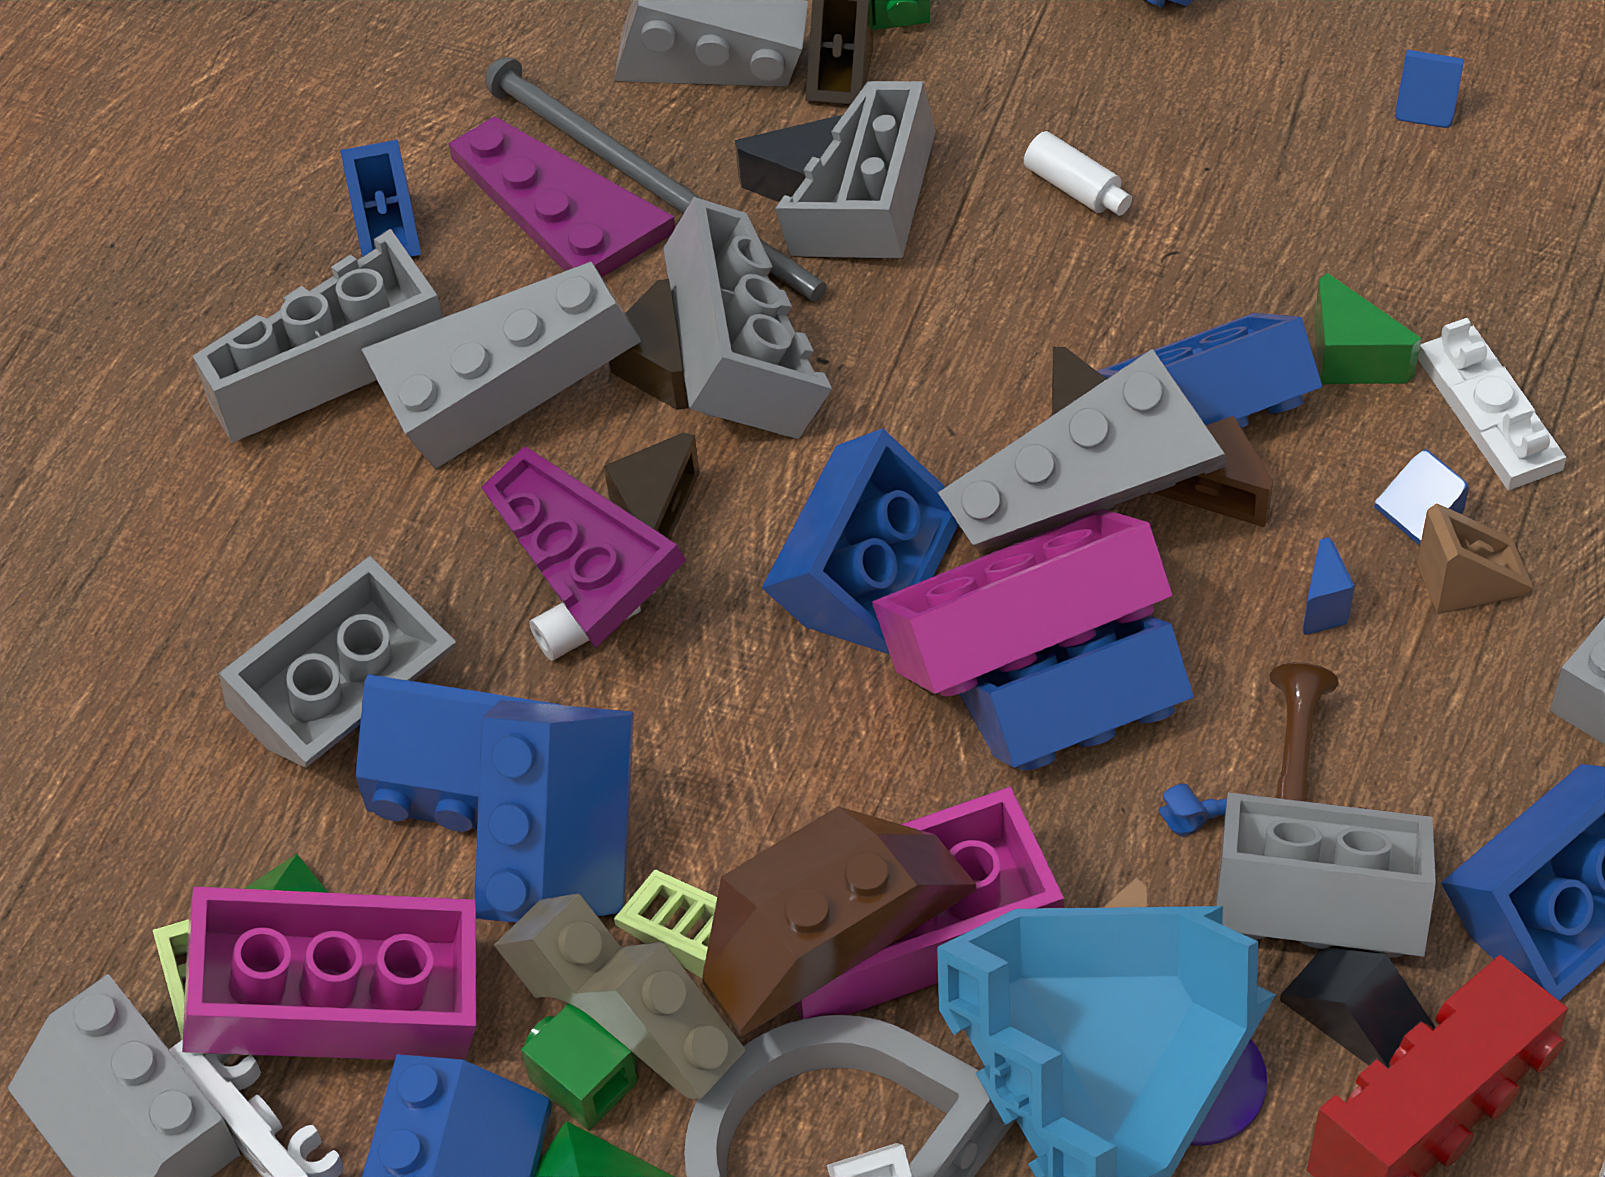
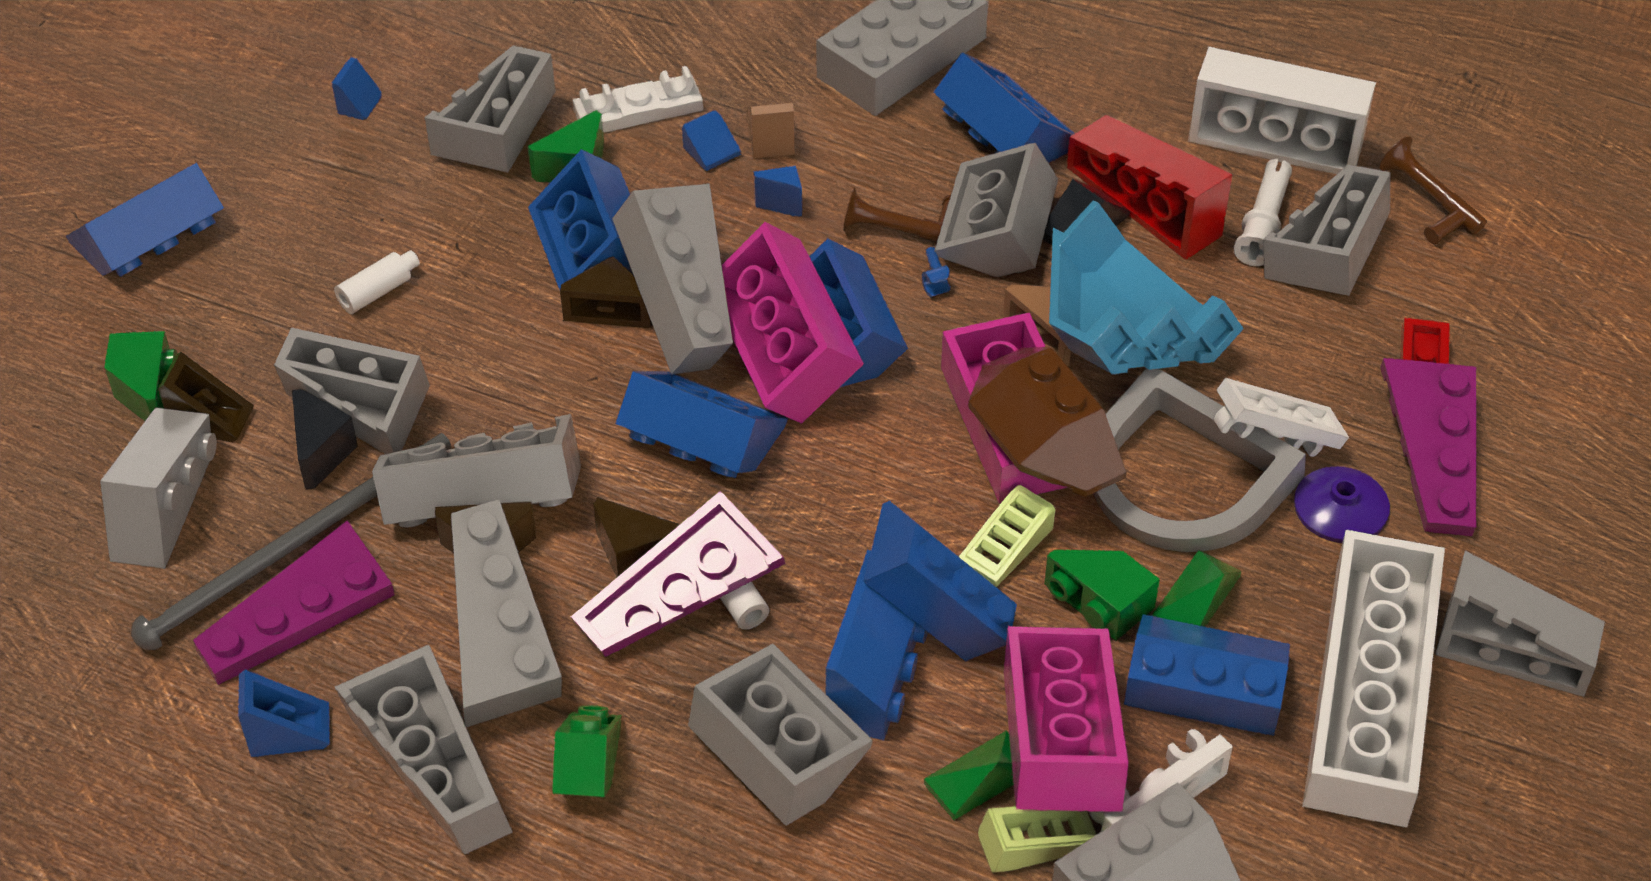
camera: 90 degrees left, 5 degrees down
(328, 489) = (586, 752): none -> green slope
(629, 990) = (1091, 534): dark tan arch -> none
(1409, 238) = (496, 113): none -> light grey wedge

